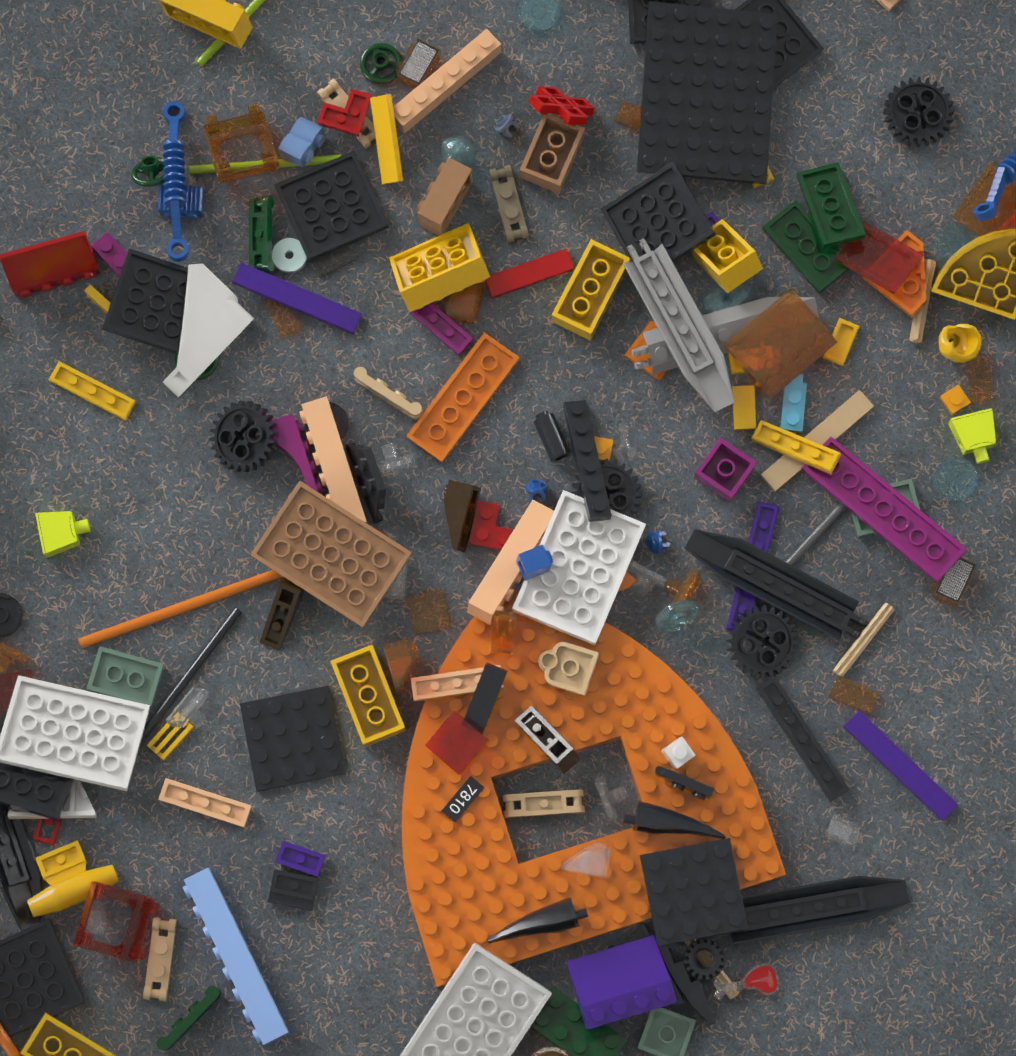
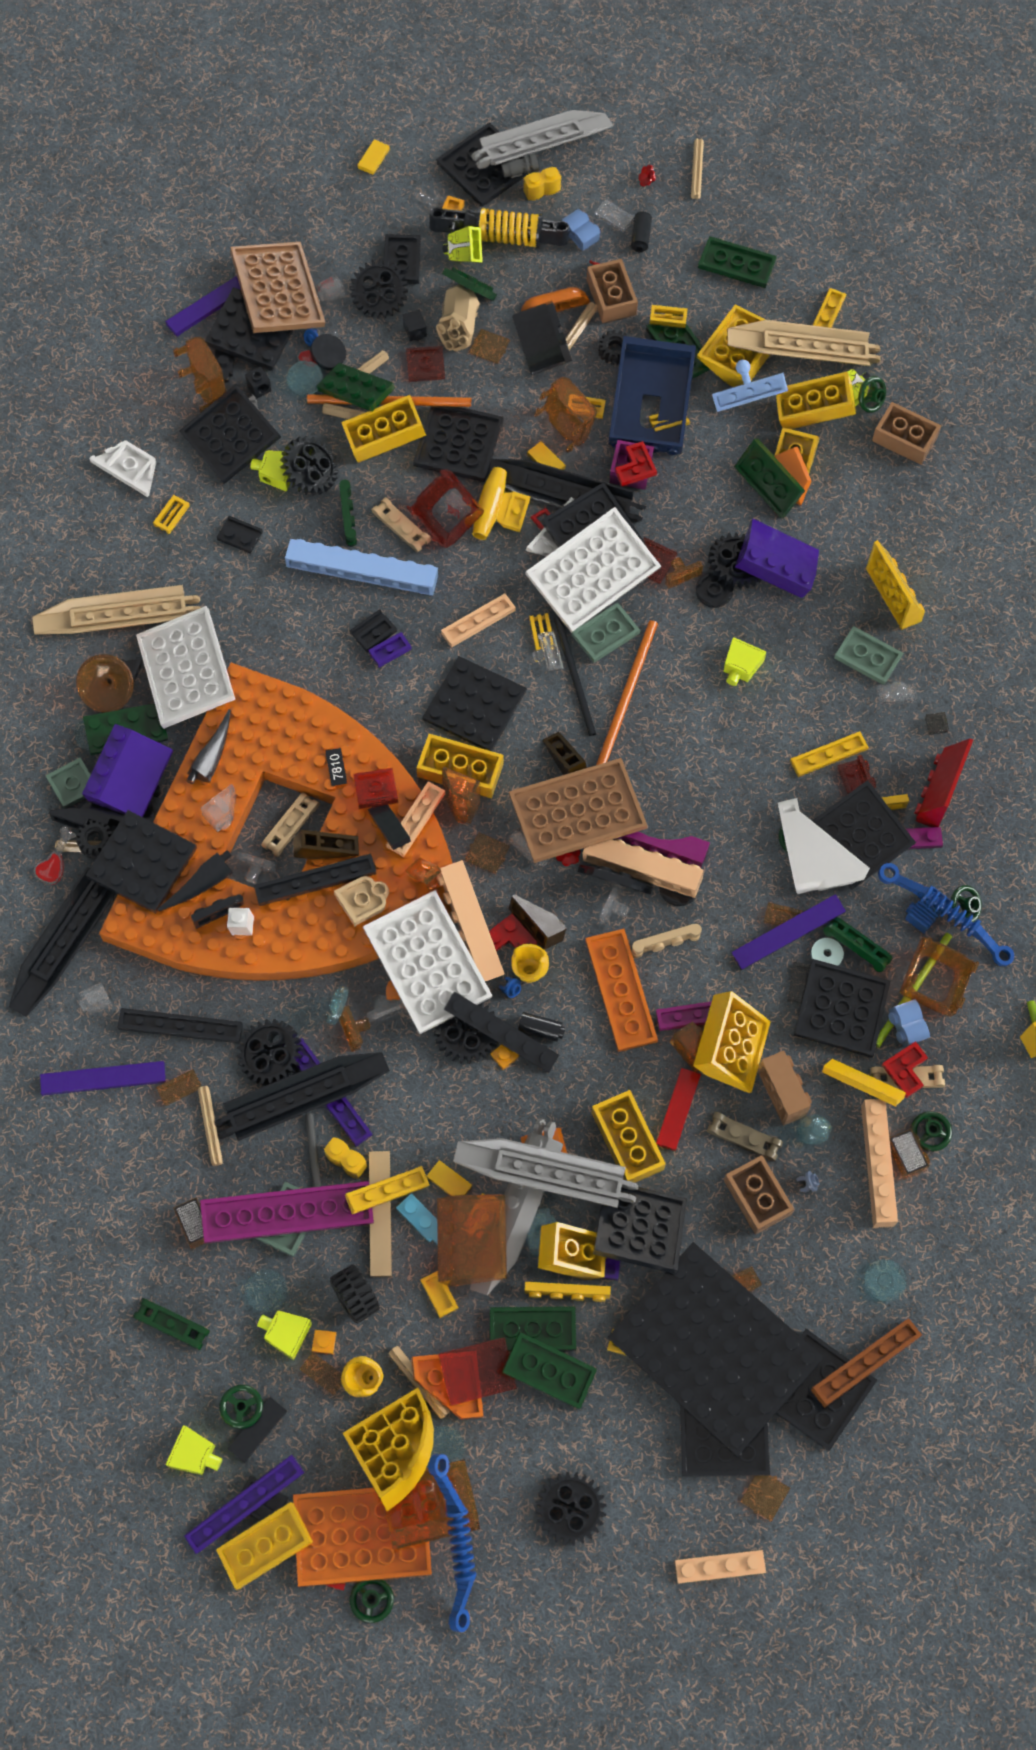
camera: 125 degrees right, 10 degrees down
(98, 349) = (855, 774): none -> clear red bracket
(244, 436) = (700, 823): black gear -> none
(499, 489) = (529, 962): none -> yellow piece
(534, 562) = (453, 927): blue brick -> none
(572, 110) = (790, 1228): red plate -> none
(586, 723) = (314, 879): none -> black plate
(654, 542) = (403, 1036): blue plate -> none
(725, 470) = (413, 1124): magenta brick -> none
(750, 235) = (575, 1291): none -> yellow plate
(799, 508) = (350, 1160): none -> yellow brick
(902, 398) = (354, 1293): none -> black tyre

